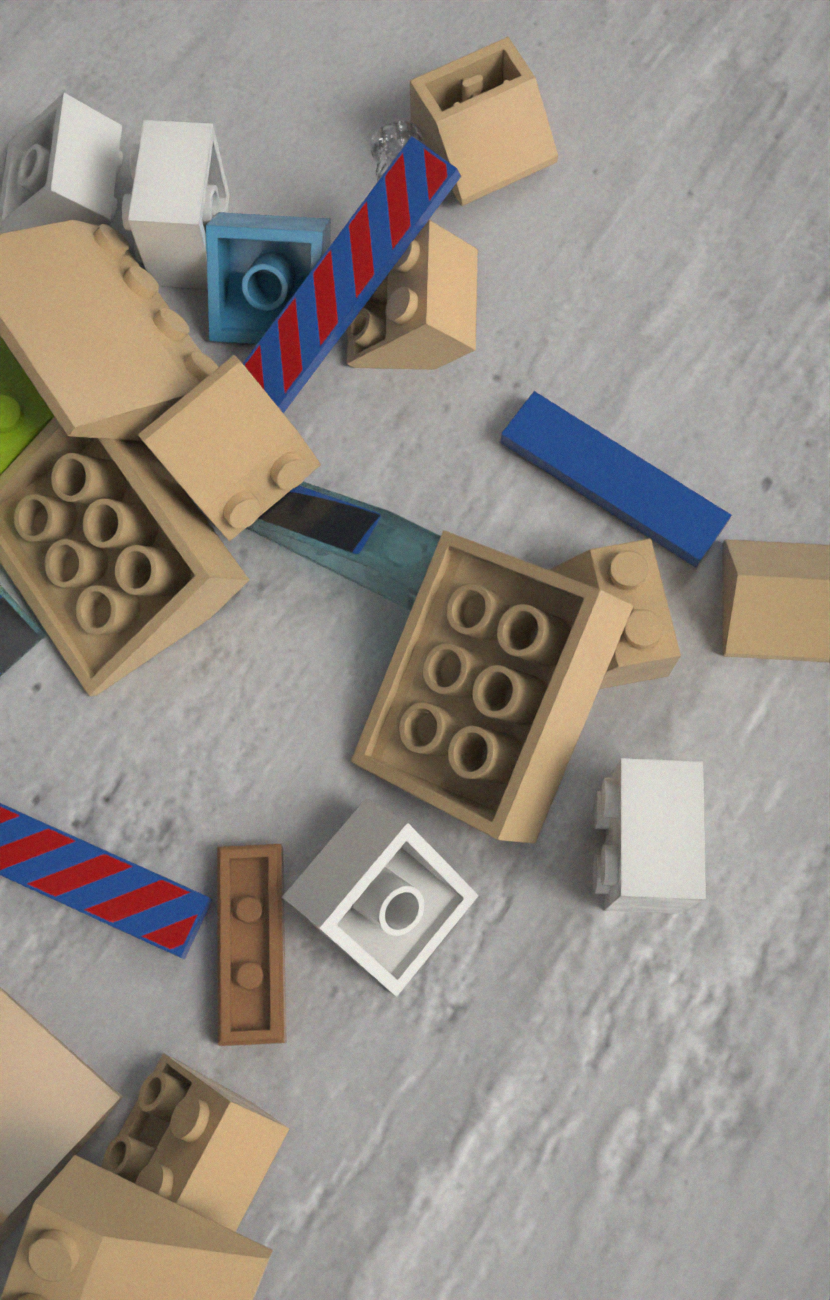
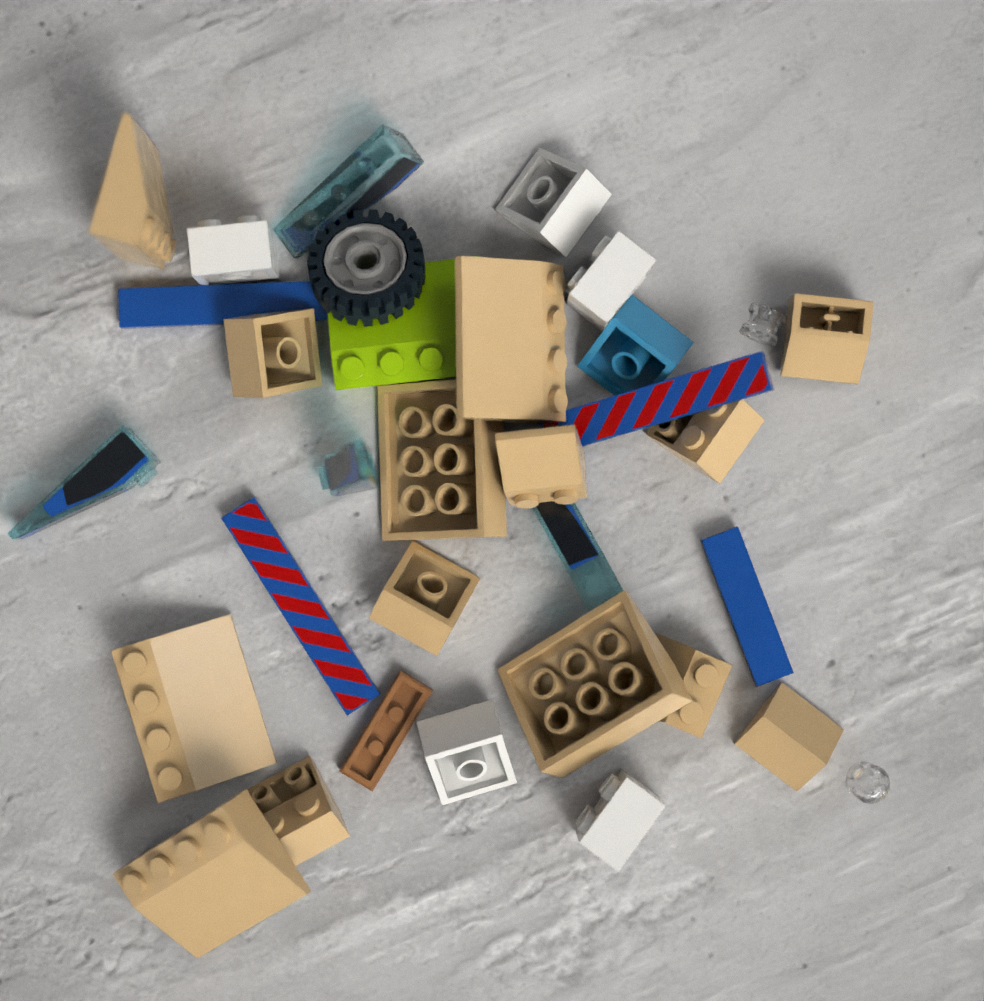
camera: 30 degrees right, 15 degrees up
(187, 731) = (424, 598): none -> tan slope

